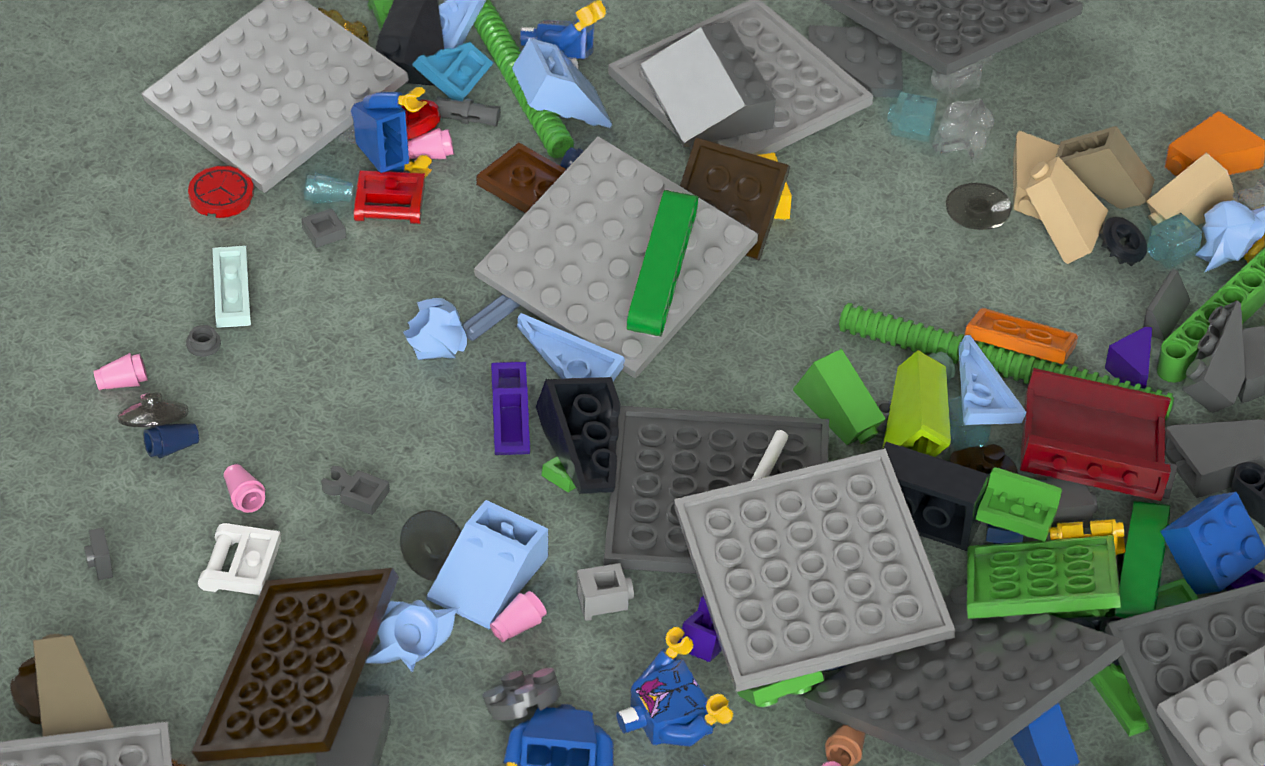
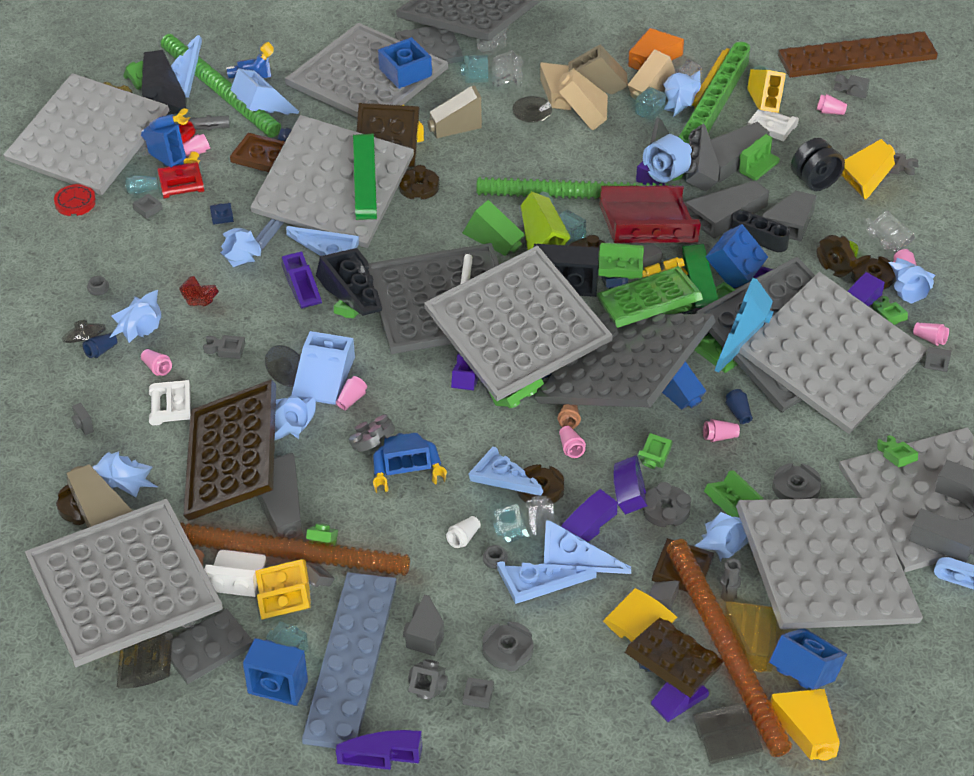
camera: 15 degrees left, 0 degrees up
(121, 373) = (54, 315): bright pink cone -> none
(124, 658) = (122, 473): none -> light blue hair
(231, 286) = (103, 251): light aqua plate -> none
(241, 411) = (138, 318): none -> light blue hair
(344, 391) = (196, 294): none -> clear red bracket
(431, 267) = (221, 213): none -> dark blue plate
(454, 69) = (194, 99): dark azure wing -> none
(603, 590) = (395, 366): light grey brick -> none
(669, 700) = (460, 417): blue torso -> none
(710, 86) = (352, 75): slope -> none
(754, 275) = (410, 182): none -> dark brown plate
(801, 83) = (405, 62): none -> blue brick
(852, 188) = (457, 114): none -> dark tan slope
(983, 391) = (577, 207): light blue wing -> none
(1022, 336) = (585, 173): orange tile -> none
(1135, 244) = (627, 113): black gear -> none
(1158, 346) = (667, 158): none -> light blue brick
(1194, 654) = (750, 318): none -> dark azure wedge

